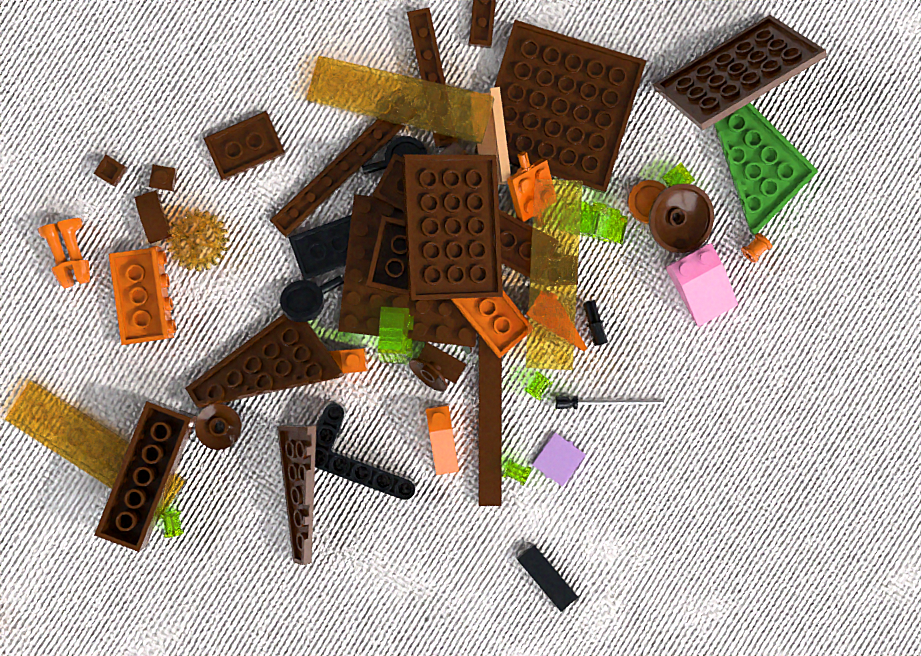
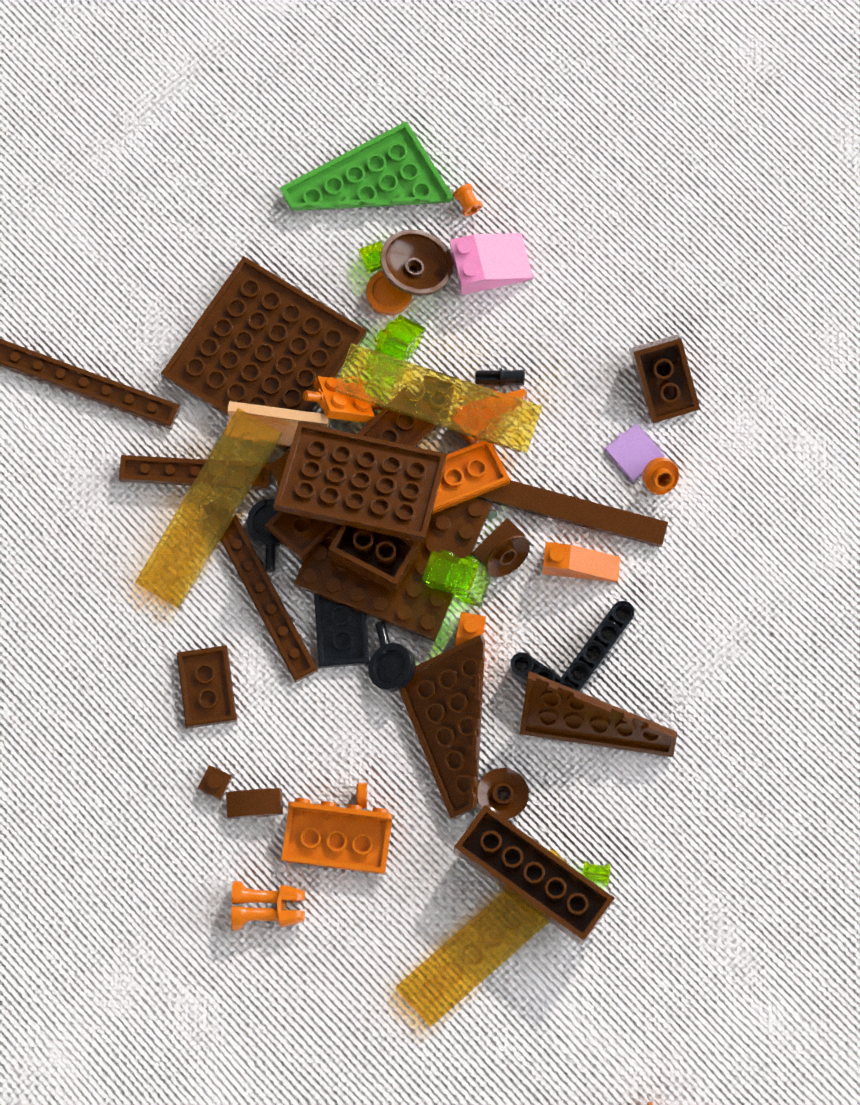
camera: 75 degrees left, 15 degrees down
(110, 170) = (190, 834): reddish brown plate -> none
(184, 306) = (362, 794): none -> orange tile
(201, 232) = (288, 771): clear yellow gear -> none
(516, 471) = (635, 496): clear neon green bush -> none
(538, 386) = (550, 450): clear neon green bush -> none
(540, 489) = (660, 475): none -> orange plate
(547, 577) = (757, 496): black tile -> none
(564, 402) = (575, 430): flat silver piece -> none
(634, 469) = (665, 378): none -> reddish brown slope
(738, 71) = (284, 169): reddish brown piece -> none

